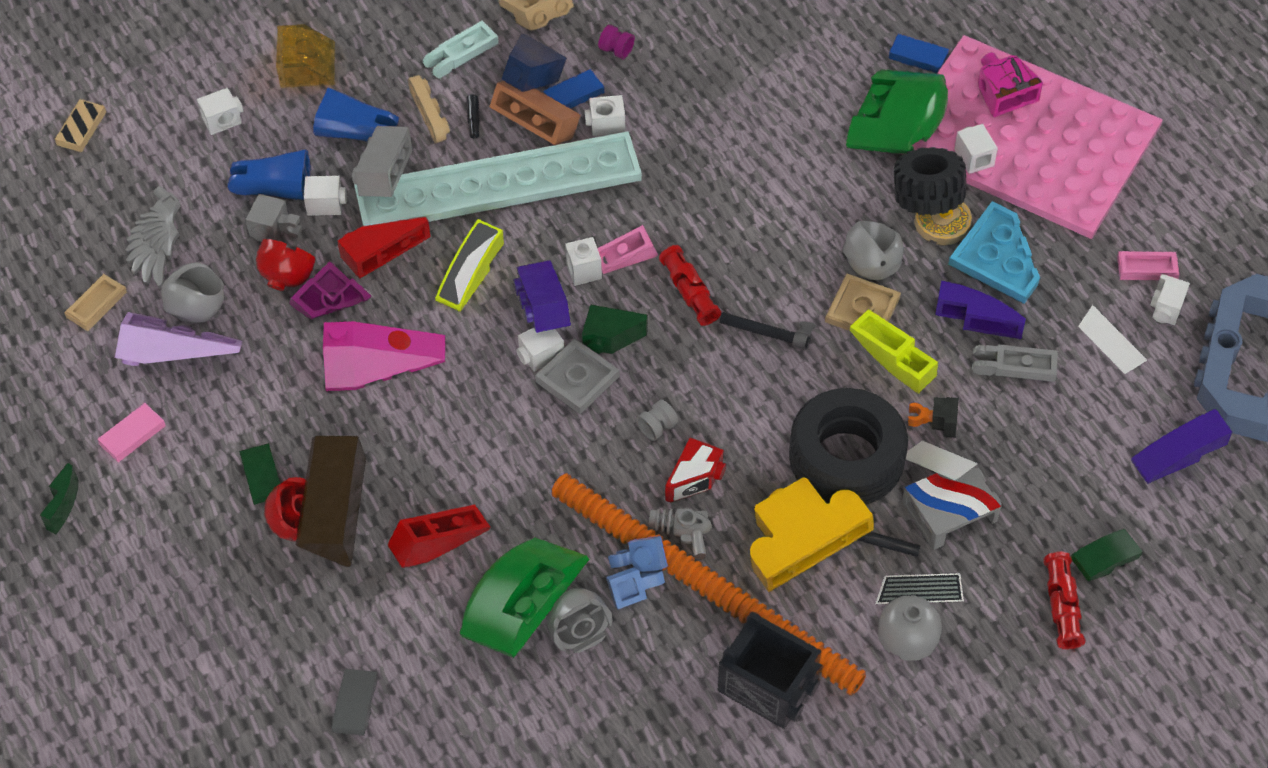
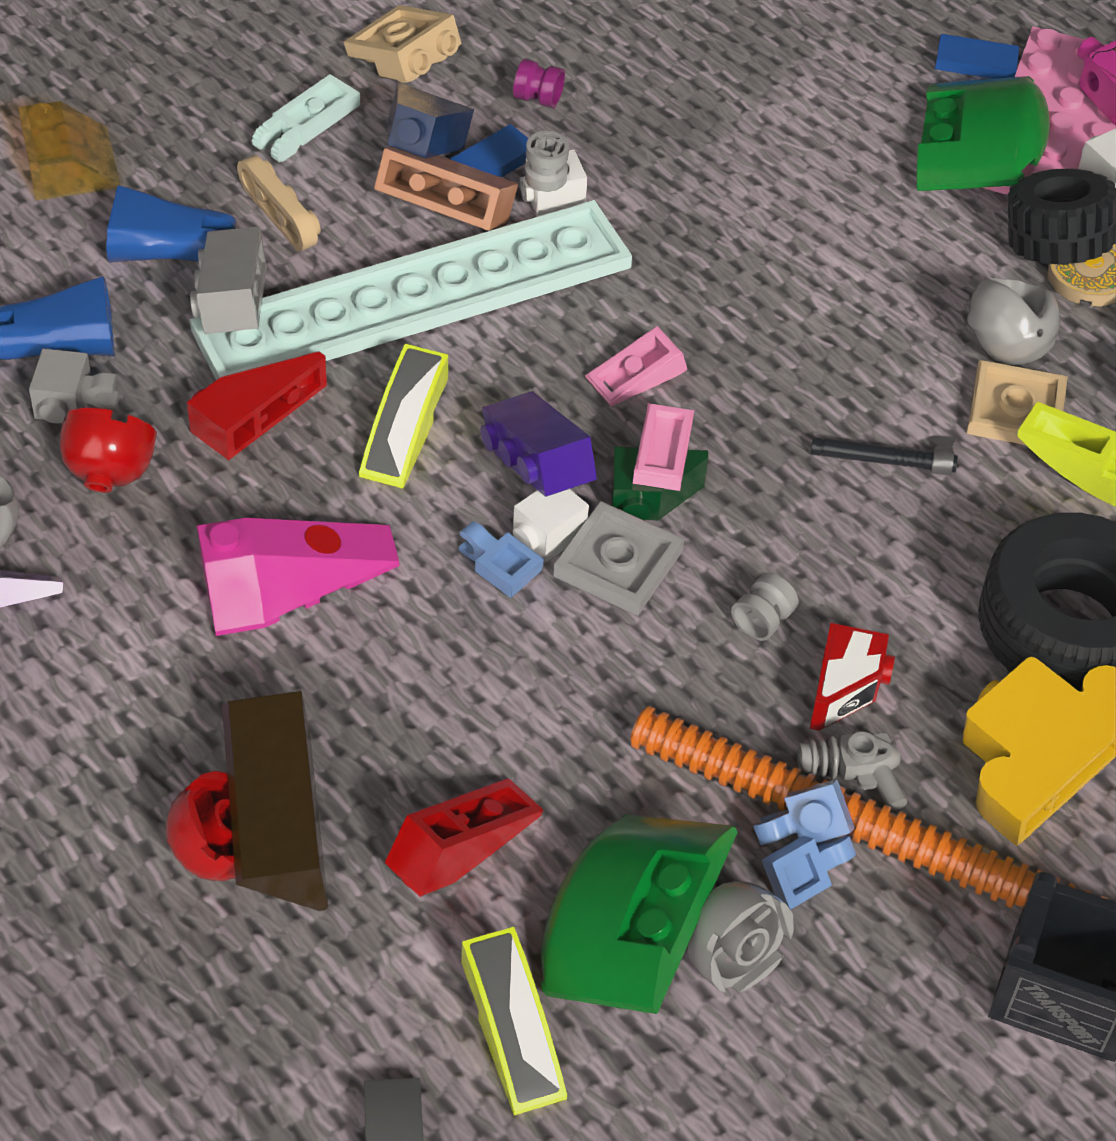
camera: 15 degrees left, 5 degrees down
(259, 472) = (140, 778): dark green slope -> none
(324, 195) = (146, 342): white brick -> none
(328, 293) = (185, 486): magenta slope -> none
(436, 648) = (513, 1020): none -> slope
(473, 115) = (348, 205): black piece -> none
(505, 369) = (502, 562): none -> medium blue plate
(583, 261) = (581, 387): white brick -> none
(598, 104) = (546, 161): none -> light grey wheel
(619, 309) = (663, 447): none -> bright pink tile
(690, 285) = (753, 404): red piece -> none

